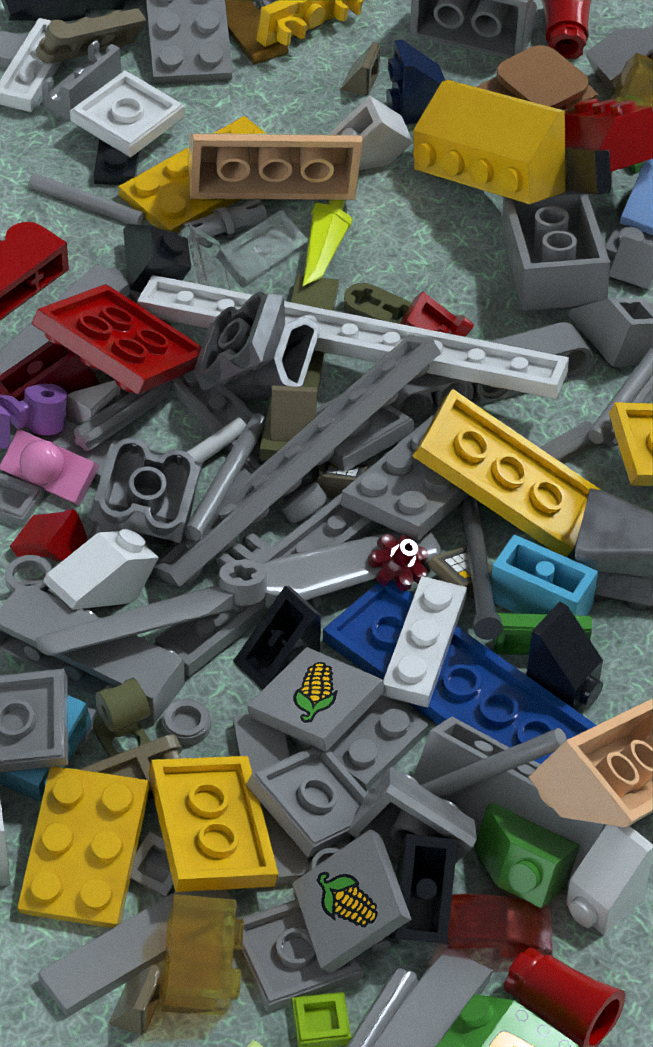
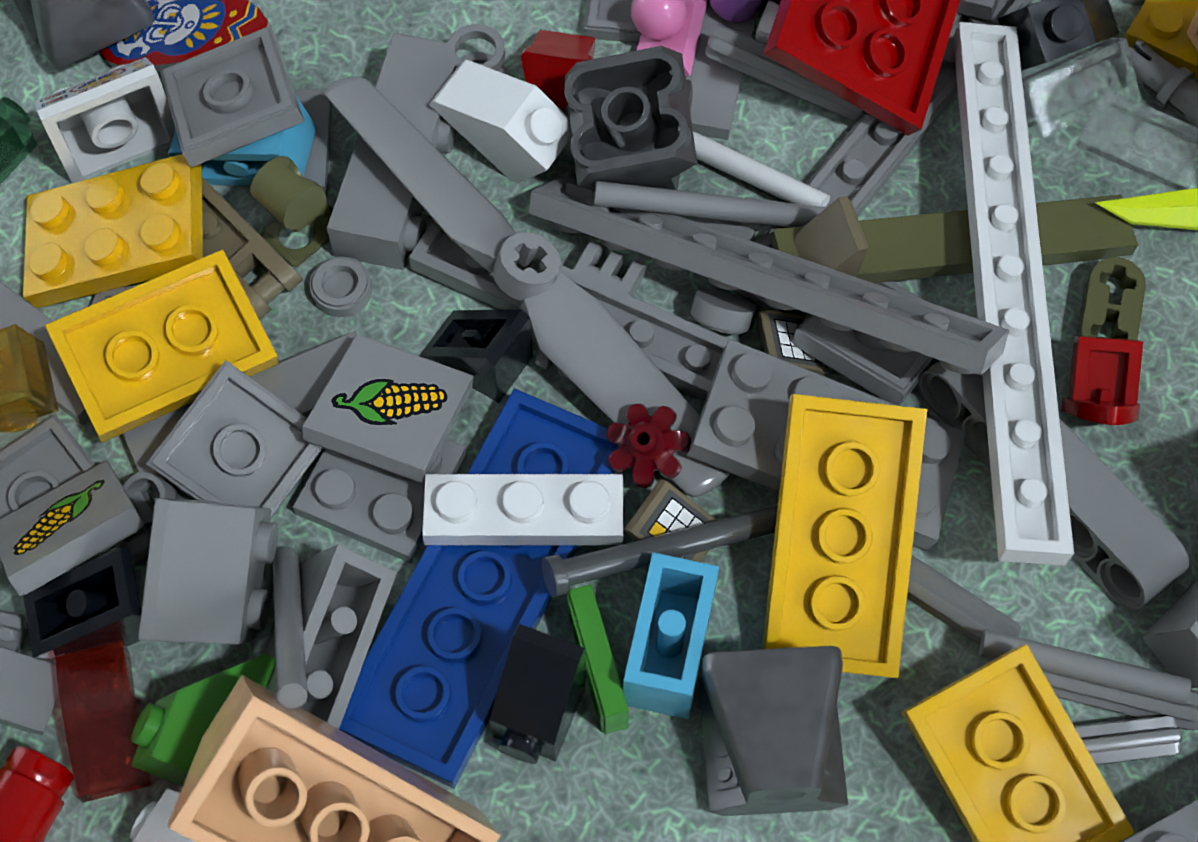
camera: 75 degrees right, 15 degrees up
(255, 348) = (916, 170): flat silver piece -> none

